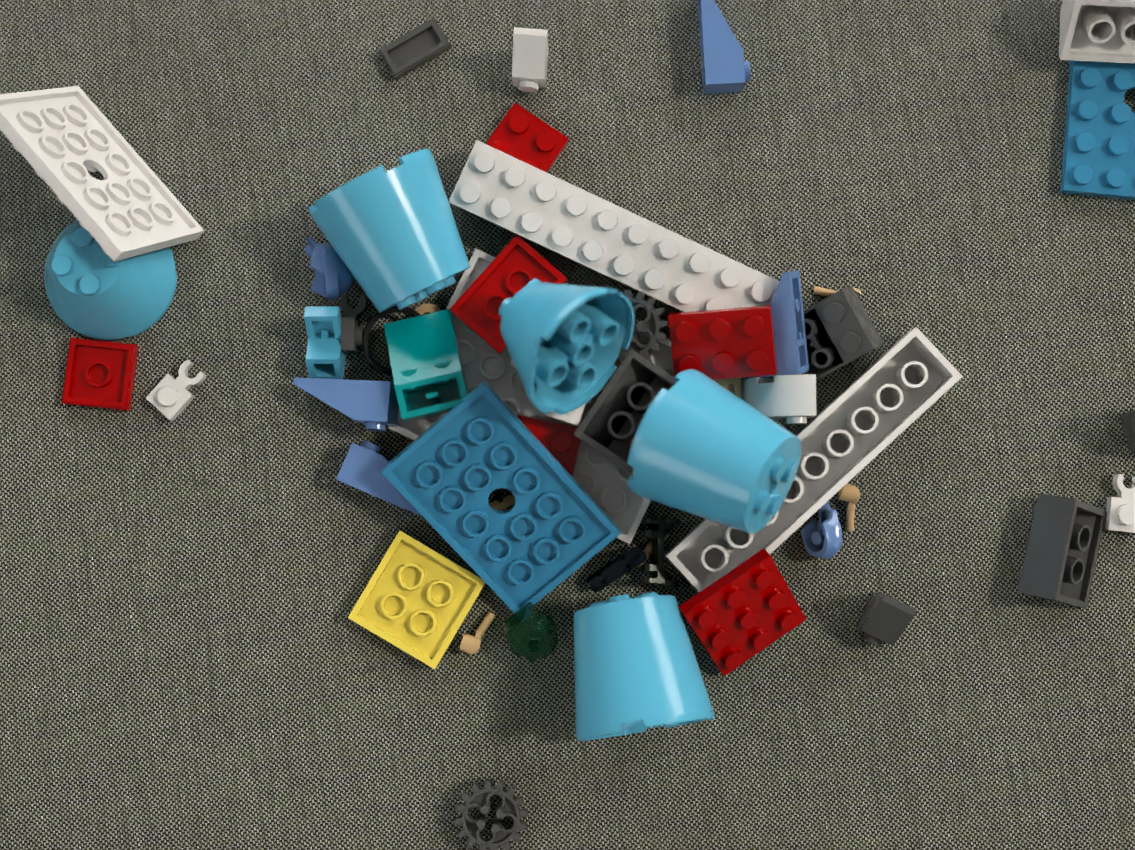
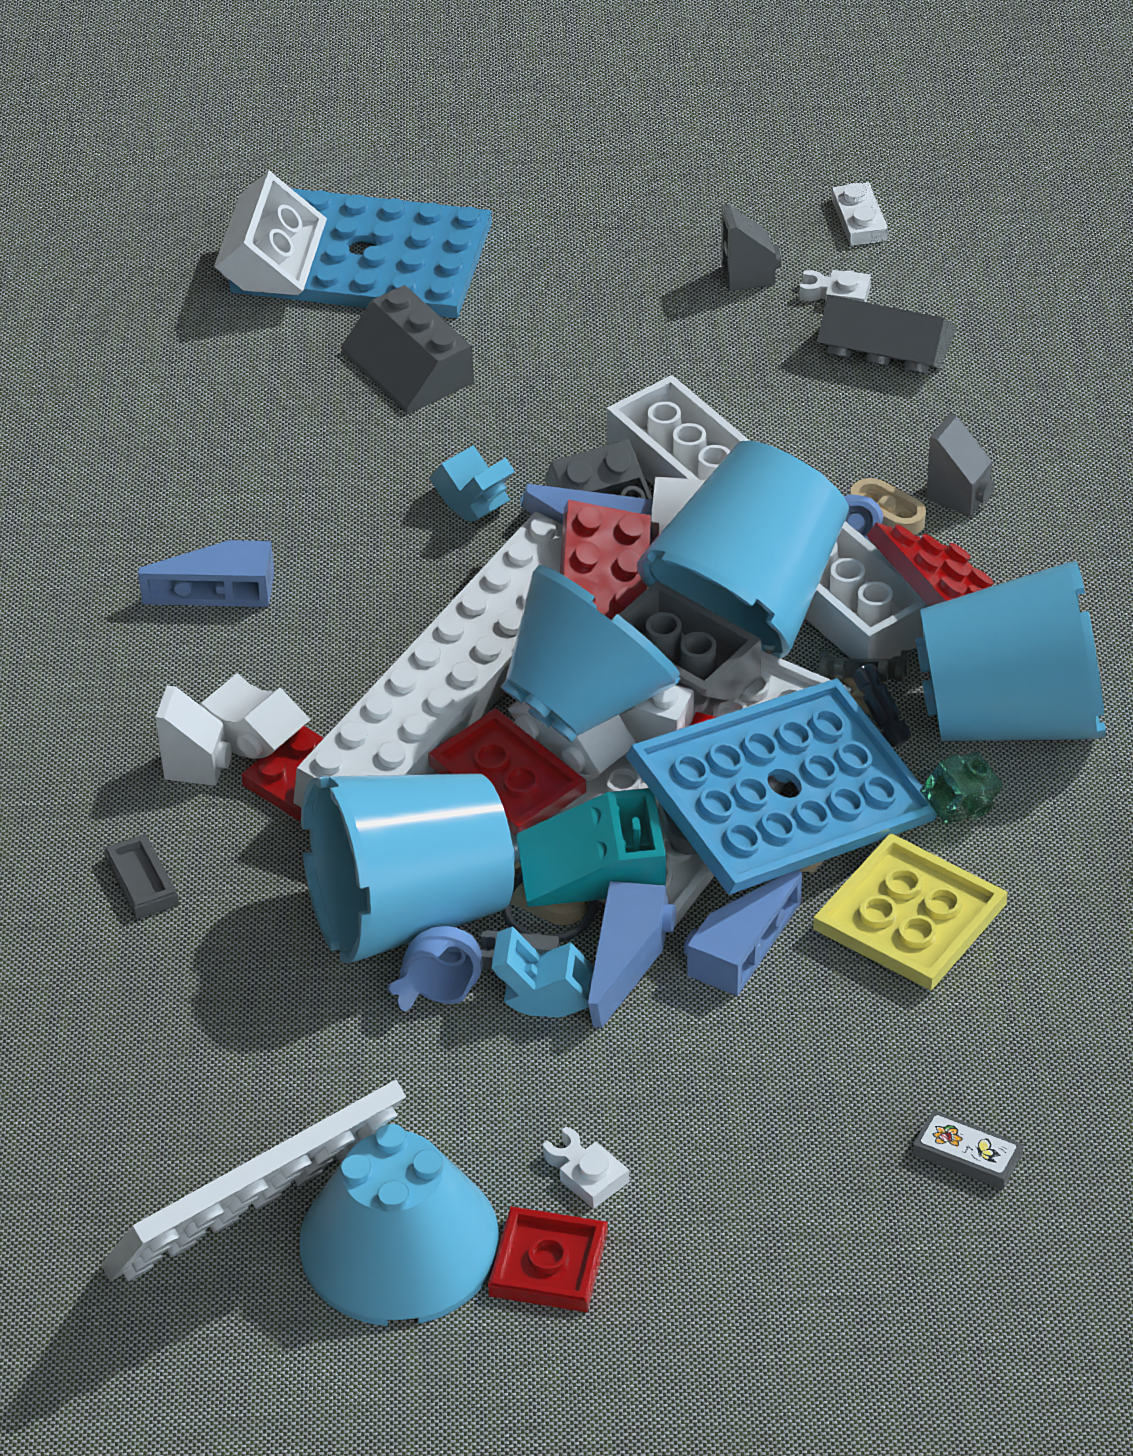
camera: 85 degrees left, 40 degrees down
(208, 648) = (968, 1149): none -> tile
(471, 644) = (971, 860): tan hand -> none
(557, 102) = (253, 718): none -> white brick
(837, 229) = (471, 485): none -> medium azure brick
(848, 563) = (896, 505): none -> tan plate
(998, 156) = (409, 350): none -> dark grey slope

